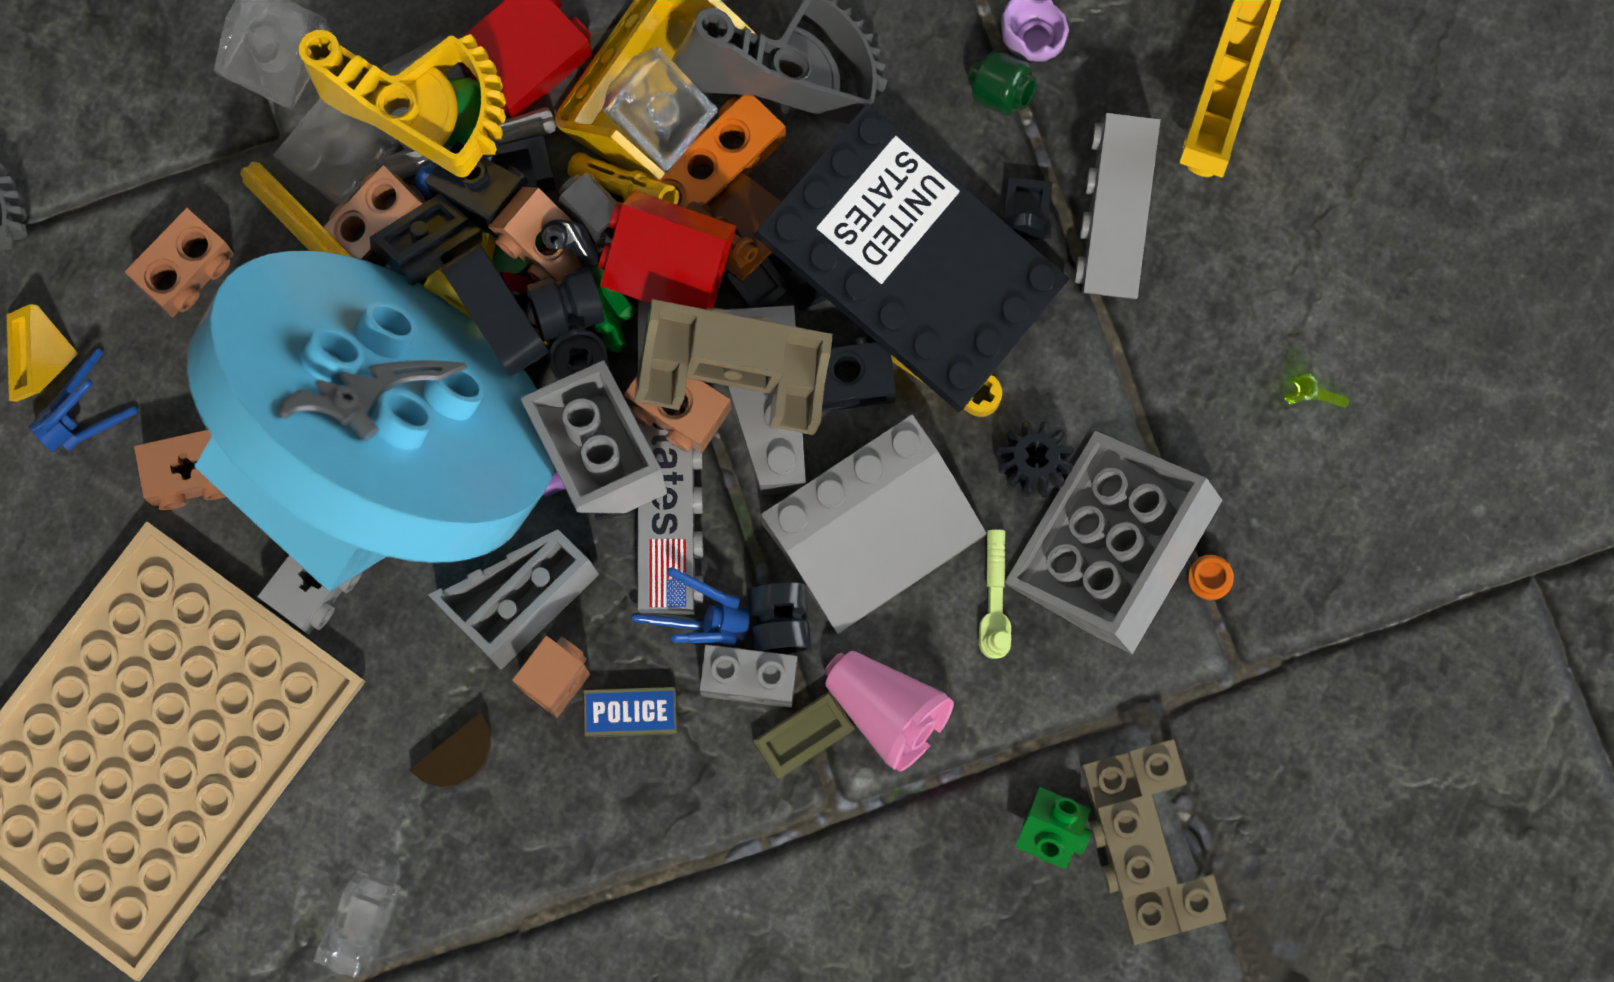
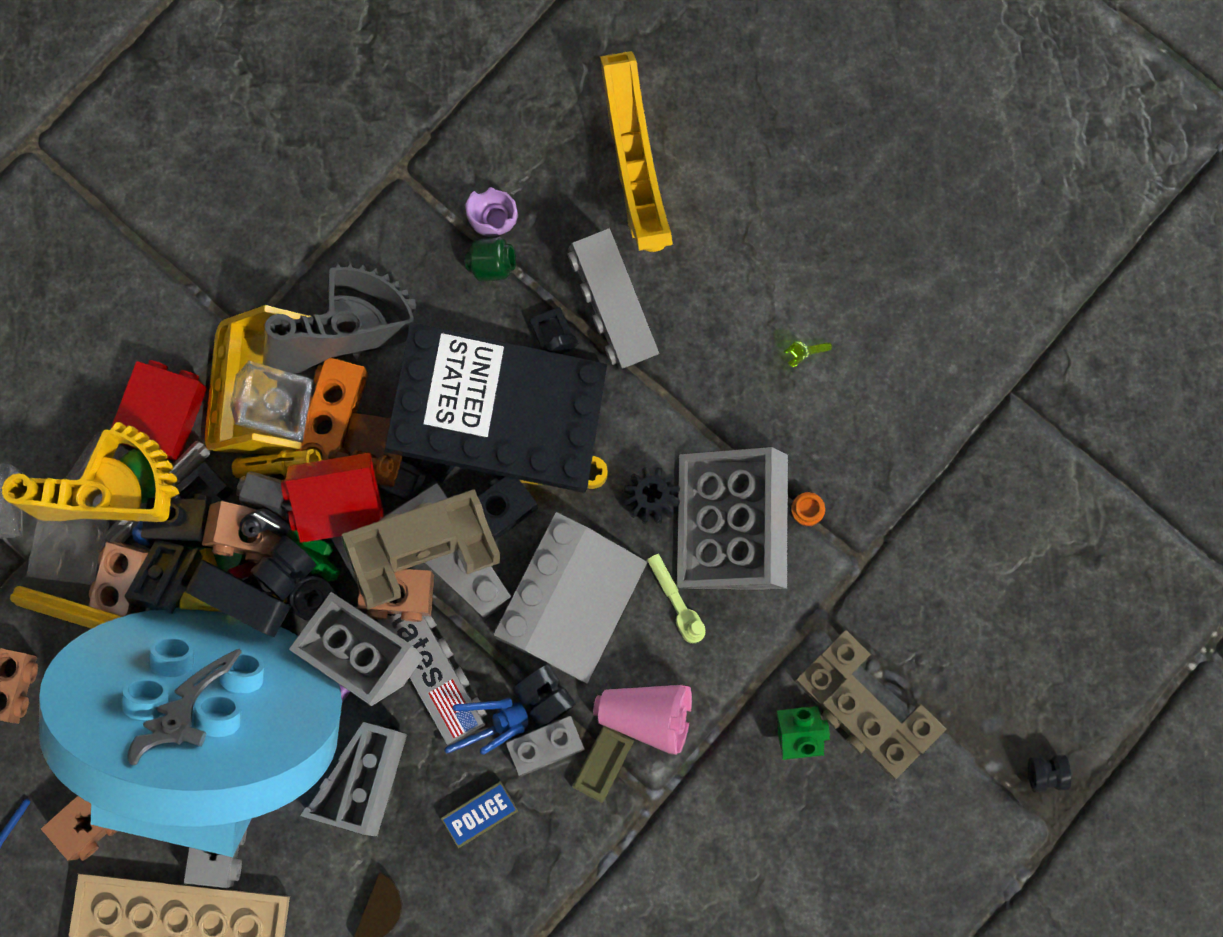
camera: 30 degrees left, 0 degrees up
(553, 674) = (414, 821): nougat brick -> none

